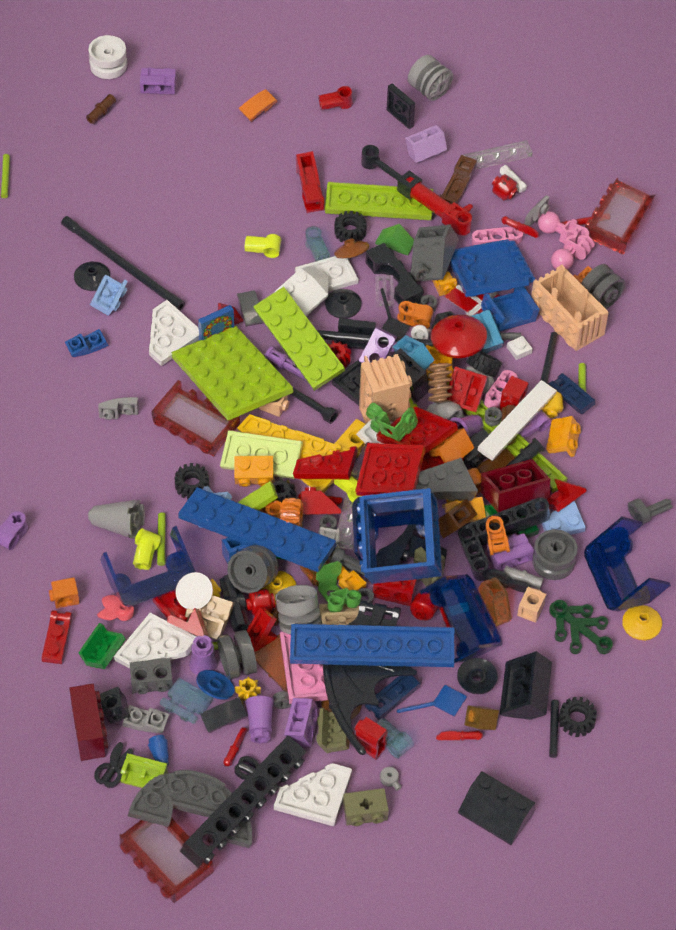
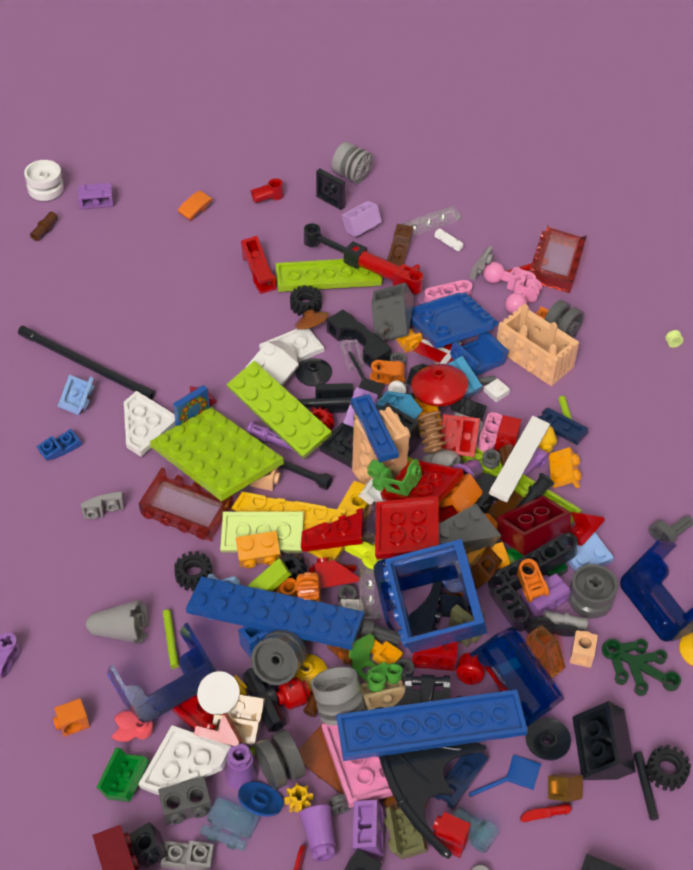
camera: 10 degrees left, 5 degrees down
(56, 637) = (69, 772): red plate -> none
(89, 275) = (54, 378): black dish -> none
(146, 544) = (155, 647): neon yellow piece -> none
(224, 714) = (277, 834): black slope -> none
(246, 303) = (218, 386): dark grey slope -> none
(260, 629) = (300, 723): red slope -> none
(268, 245) = (230, 327): neon yellow piece -> none
(315, 243) = (275, 319): clear light blue piece -> none
(378, 373) = (374, 428): none -> blue tile
(396, 238) = (353, 305): bright green slope -> none
(504, 187) = (444, 247): red head -> none
(521, 227) = (469, 279): red piece -> none
(549, 357) = (527, 396): black bar -> none

